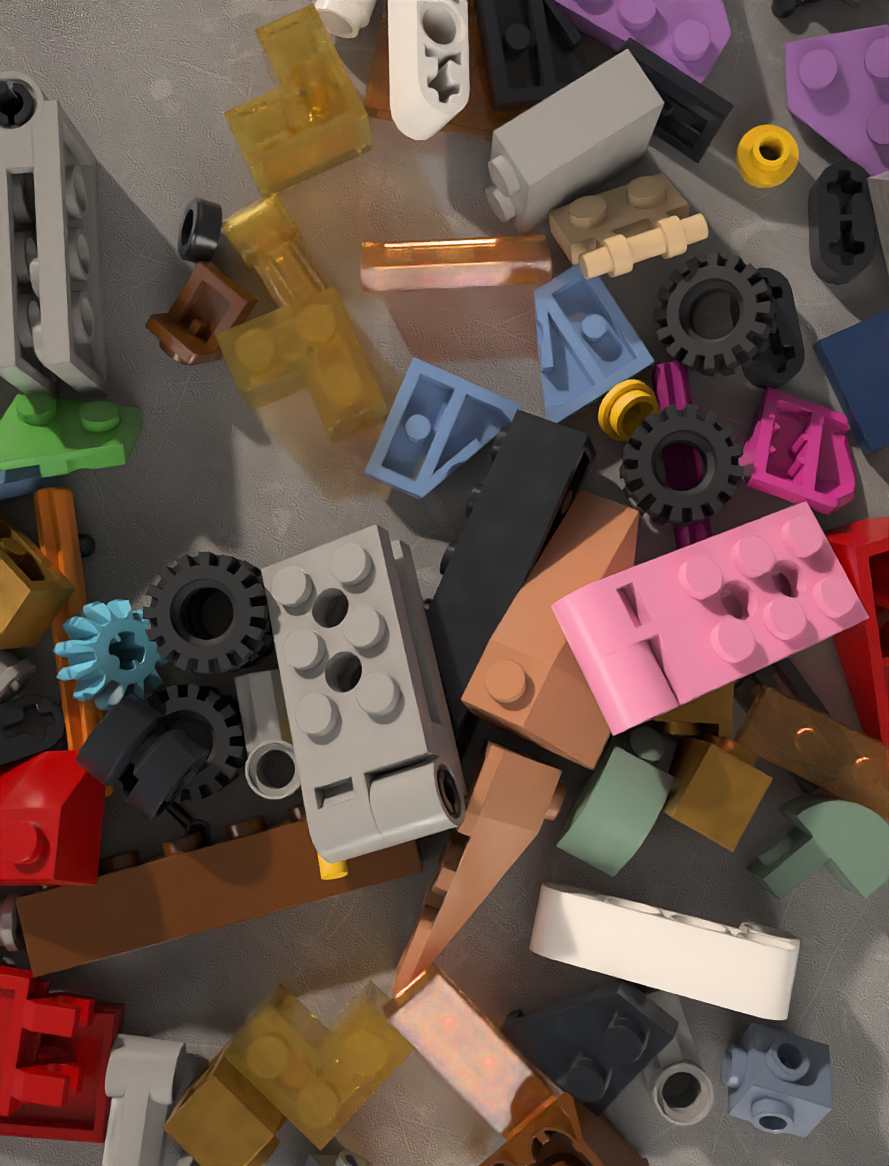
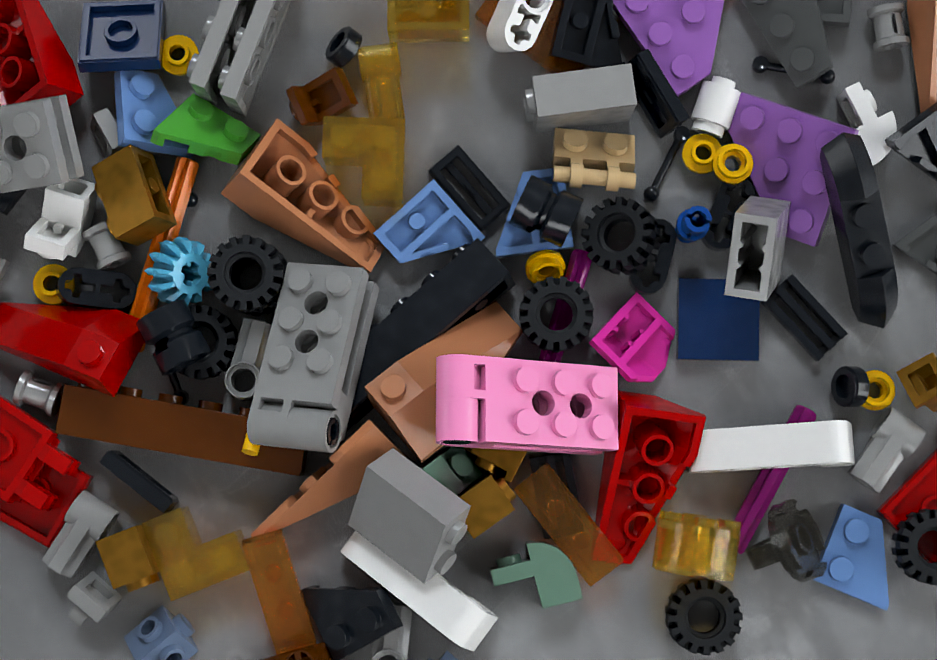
camera: 25 degrees right, 0 degrees up
(192, 984) = (139, 481): none -> black tile
(224, 471) = (293, 194): none -> nougat wedge
(455, 263) = (484, 133): clear orange tile -> none
(478, 329) = (491, 214): none -> black tile
(601, 323) = (546, 211): none -> black wheel
(620, 860) = (409, 515): none -> light grey brick
(722, 149) = (680, 136): none -> black hinge
(756, 81) = (715, 107): none -> white brick
(816, 247) = (697, 226): none -> blue pin
(822, 130) = (736, 152): none -> yellow plate

